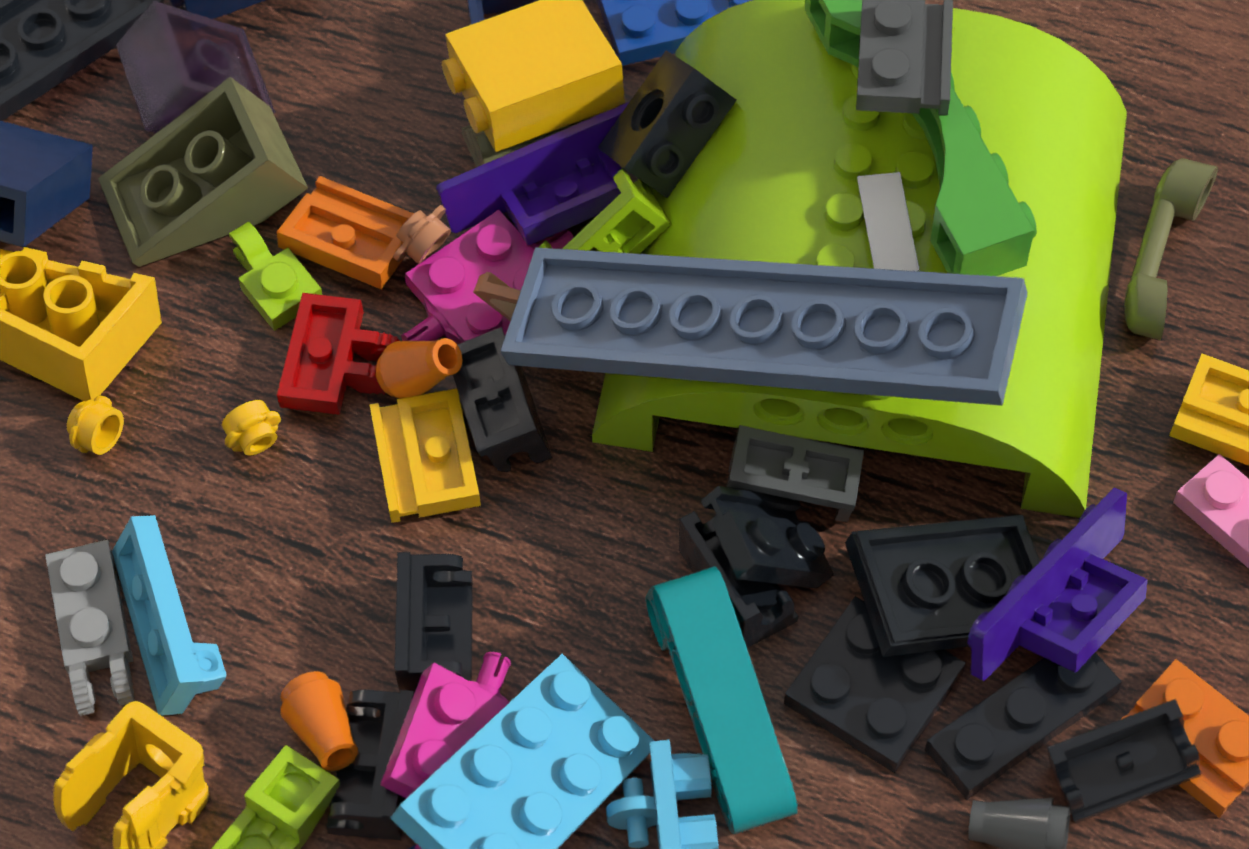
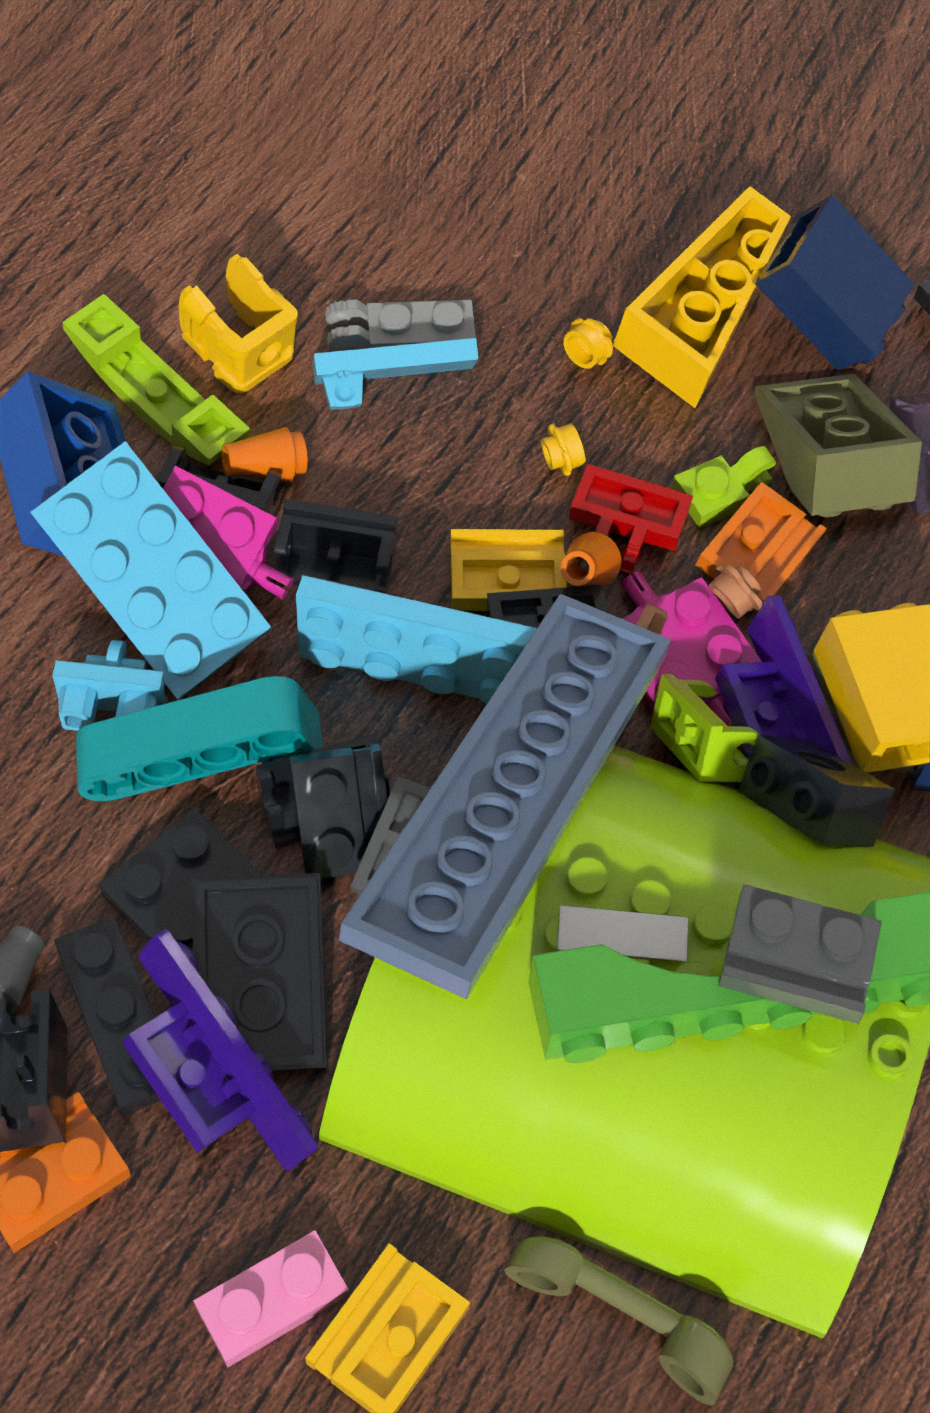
camera: 95 degrees right, 0 degrees up
(561, 506) = (405, 639): none -> medium azure plate

